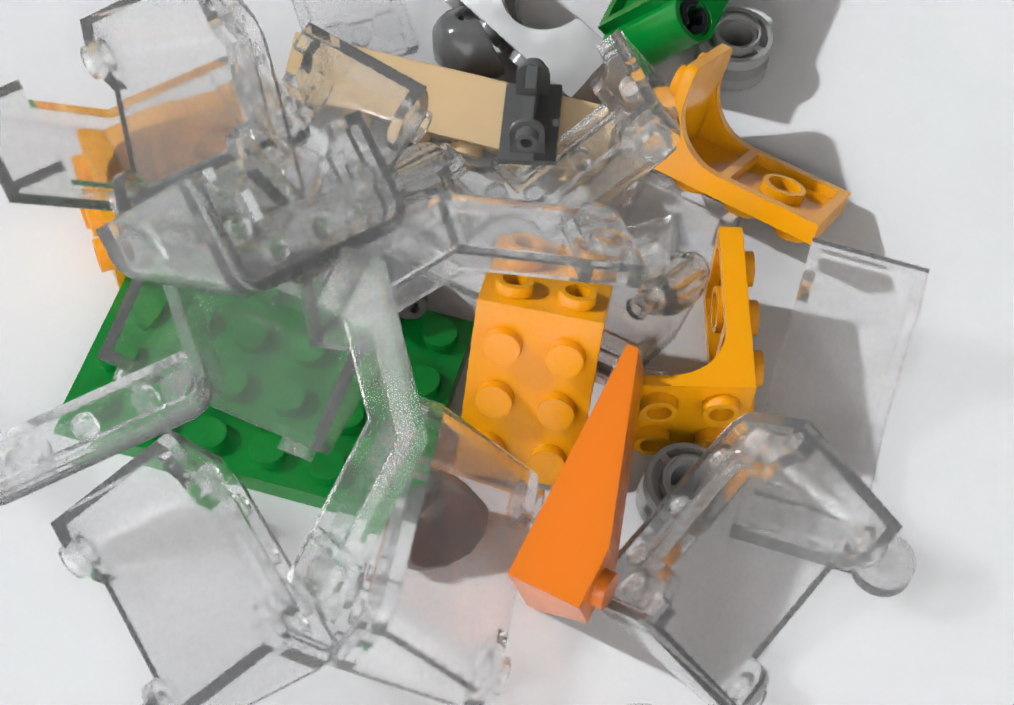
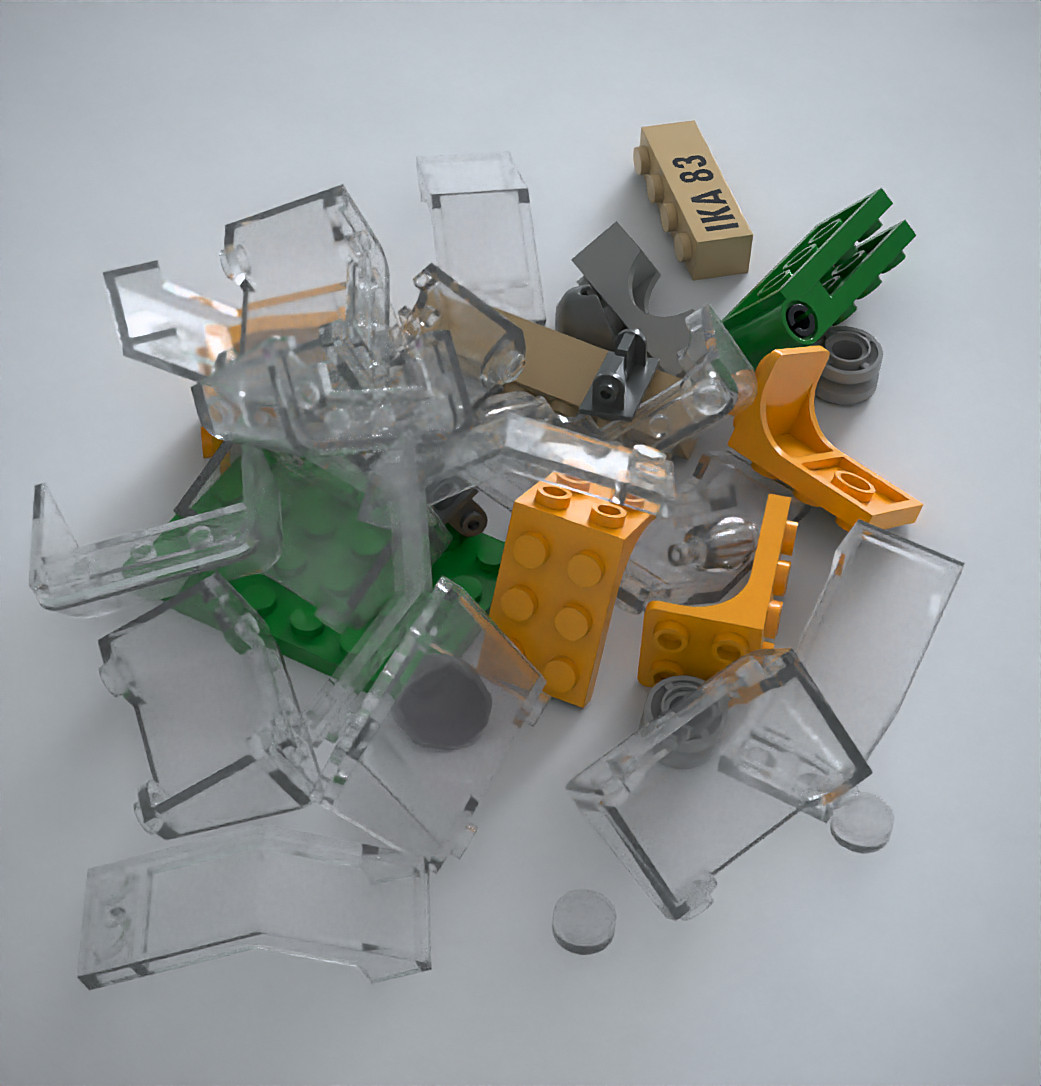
camera: 15 degrees right, 10 degrees down
(577, 534) = (561, 718): orange wedge -> none

